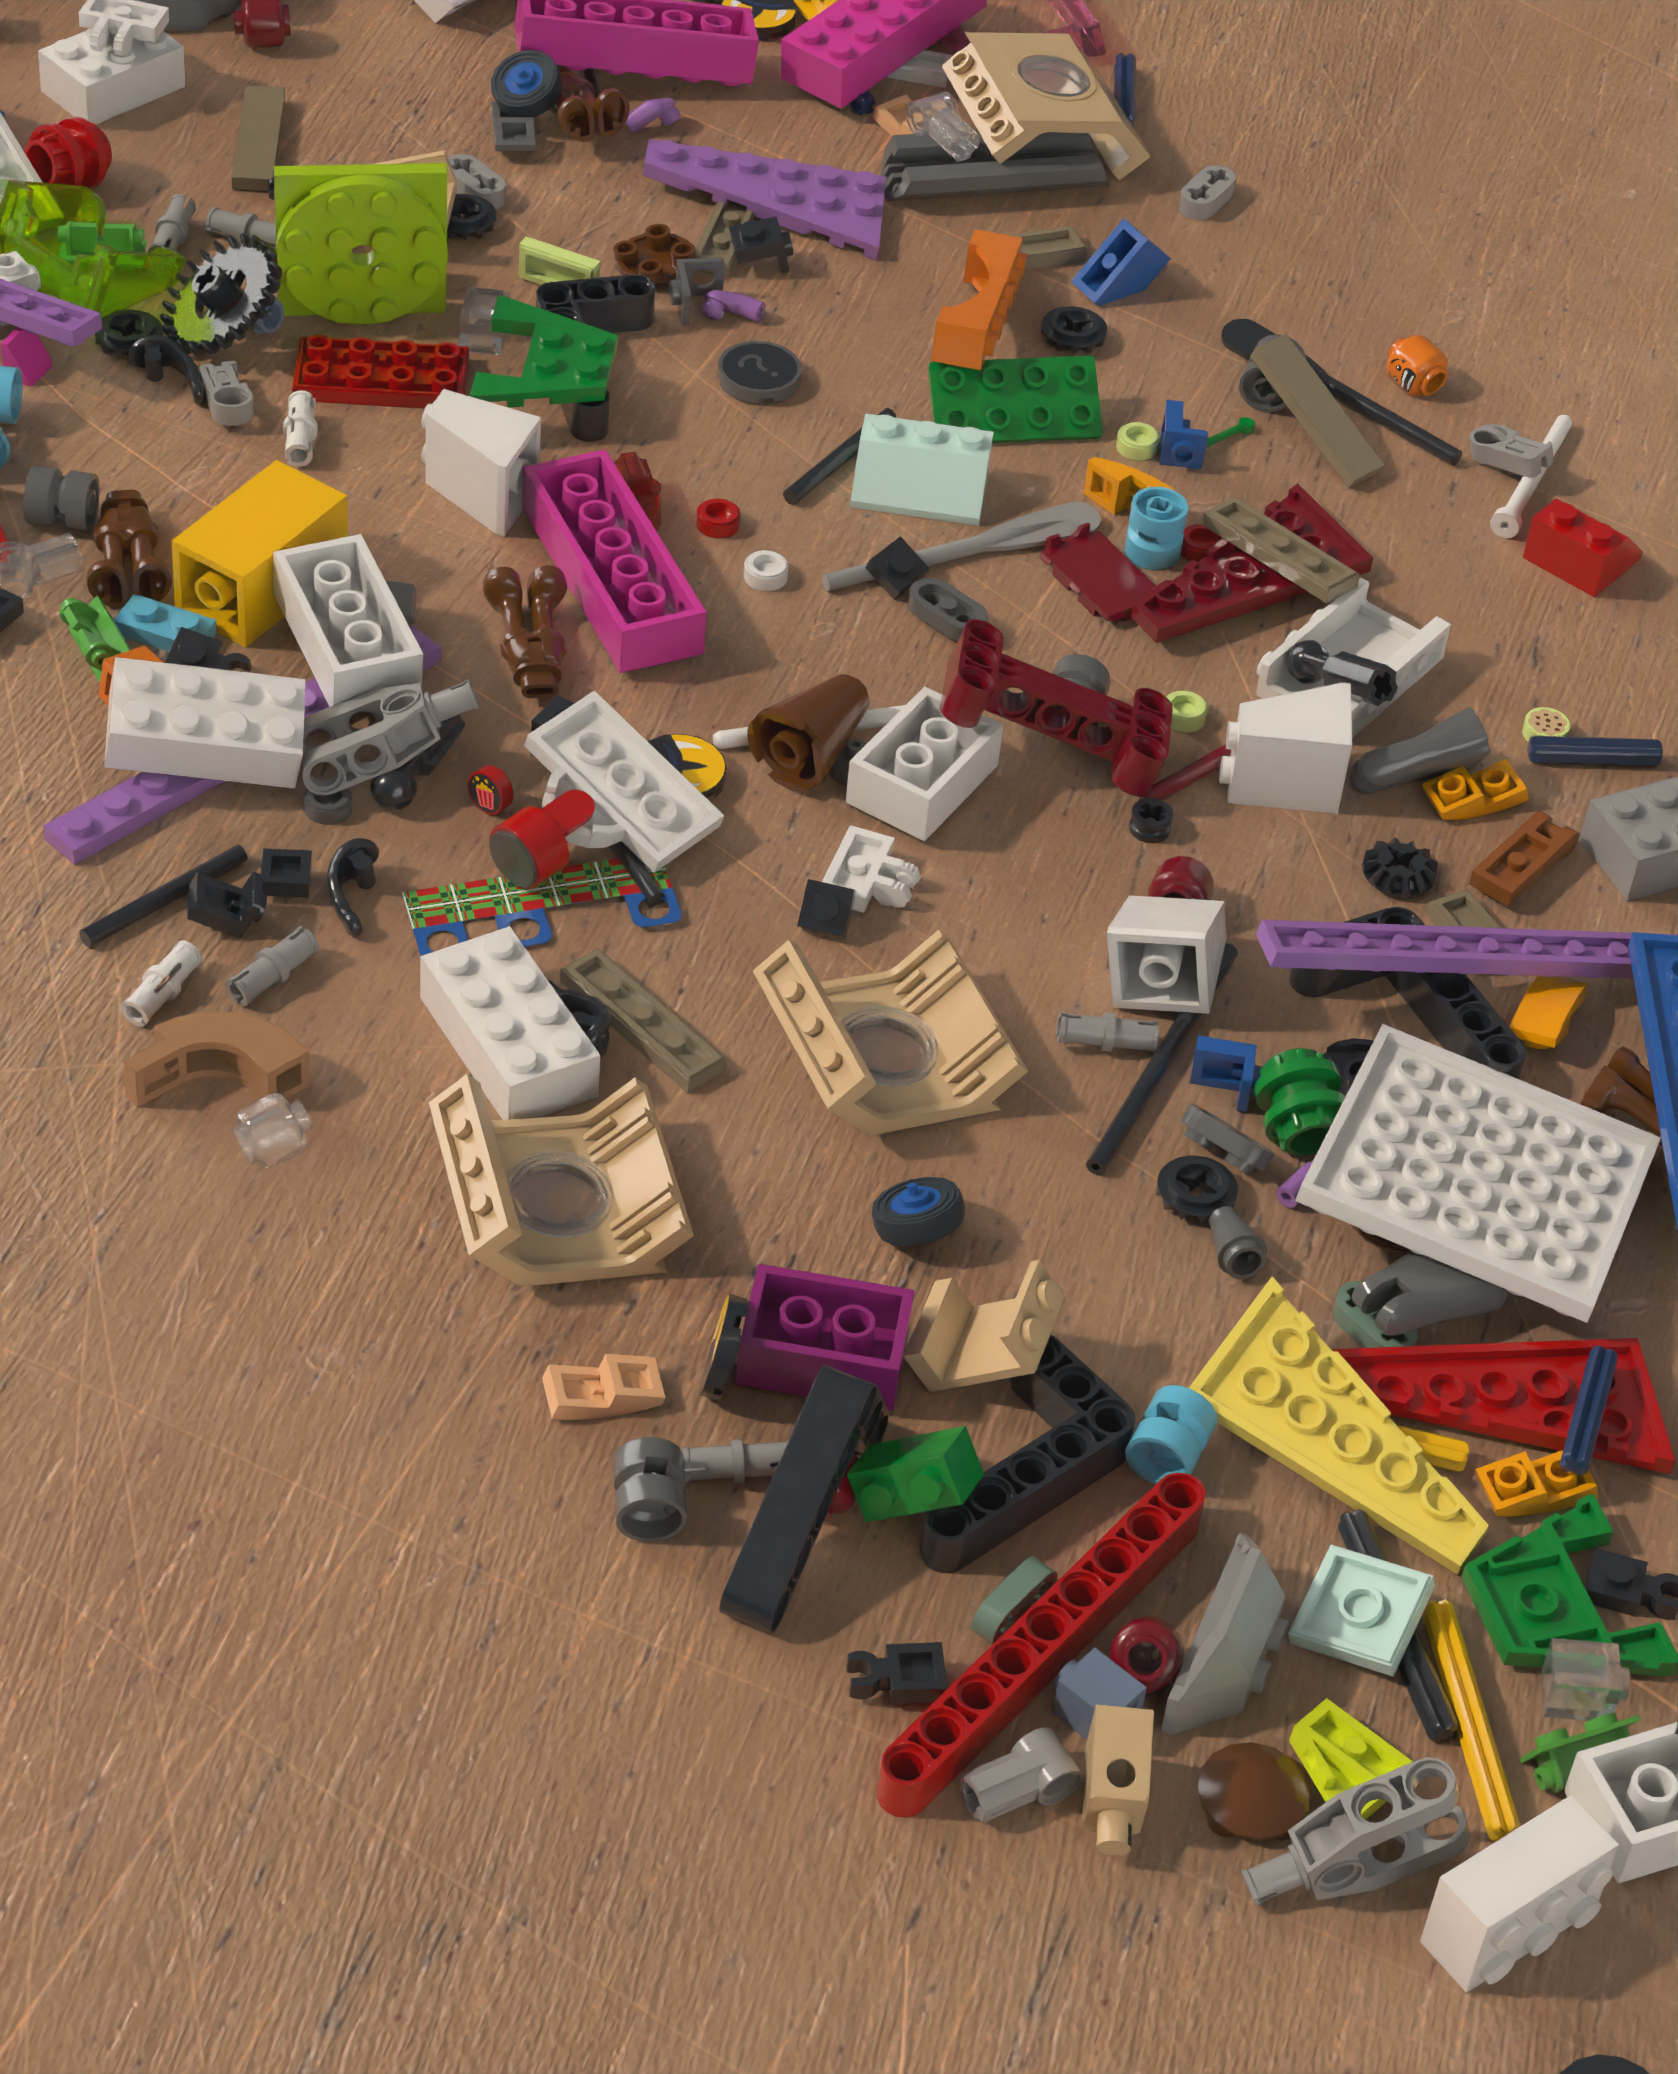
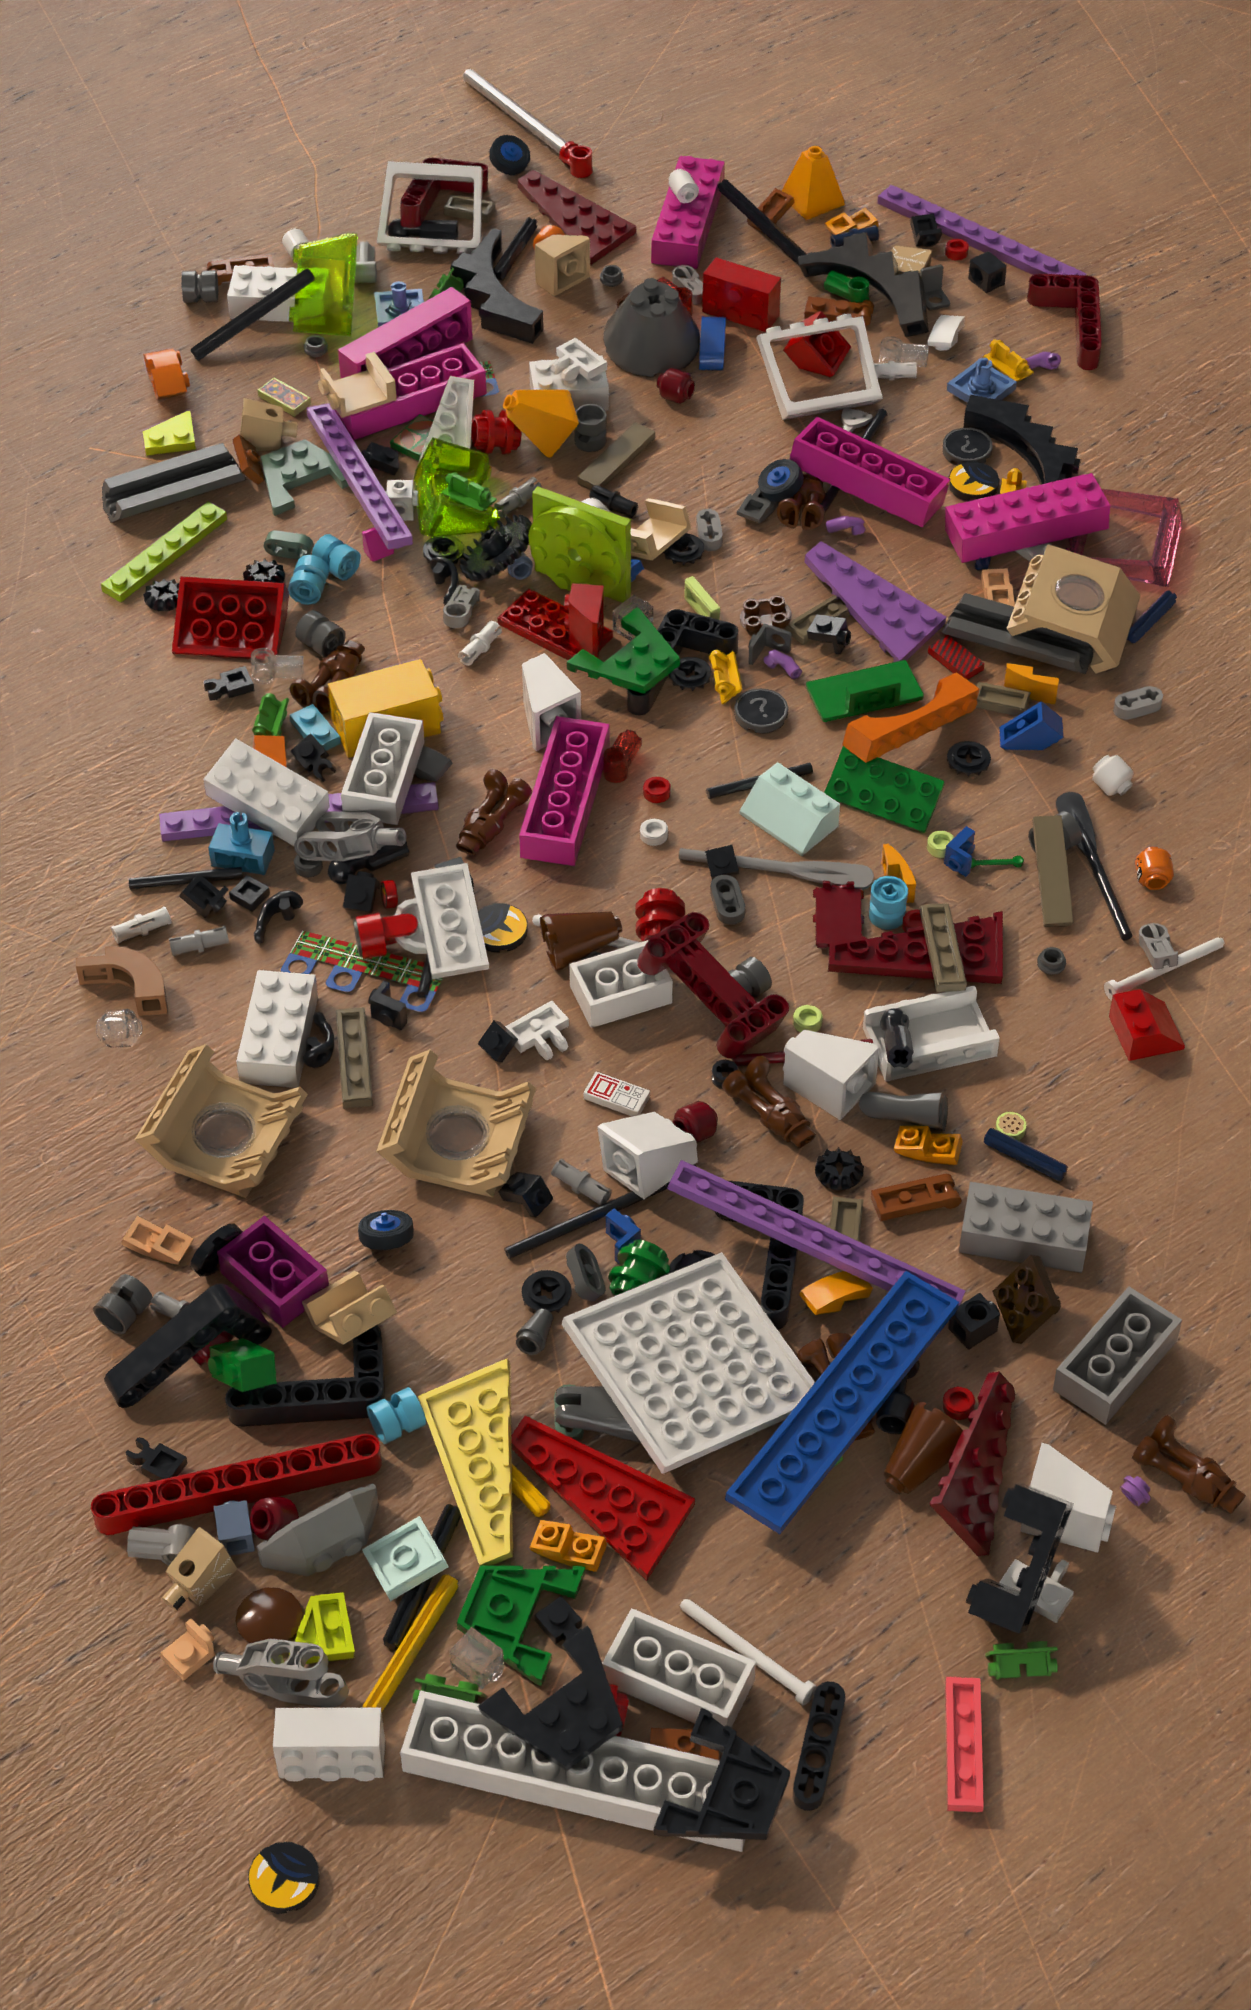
camera: 40 degrees right, 5 degrees up
(135, 110) = (543, 416): none -> light orange slope
(196, 108) = (591, 431): none -> dark grey wheel
(218, 814) = (241, 846): none -> dark azure brick
(448, 804) = (361, 892): none -> black bracket
(449, 330) = (585, 616): none -> red slope
(634, 933) = (386, 1009): none -> black bracket
(639, 359) = (701, 675): none -> black gear
(677, 345) = (726, 675): none -> yellow hinge
(868, 299) = (864, 691): none -> green bracket
(893, 661) = (657, 911): none -> red piece
(939, 221) = (956, 657): none -> red tile
(940, 120) = (993, 596): clear piece -> none
(1012, 1598) = (241, 1451): sand green beam -> none
(1040, 906) = (616, 1094): none -> white tile
(1050, 1073) = (527, 1190): none -> black bracket
(1054, 209) = (1022, 678): none -> light orange slope
(1193, 1893) = (190, 1650): none -> light nougat bracket
(1265, 832) = (784, 1112): none -> reddish brown piece
(1267, 281) = (1113, 775): none -> white head
(1404, 519) = (1051, 961): none -> dark grey plate
(1589, 1410) = (621, 1521): dark blue axle -> none

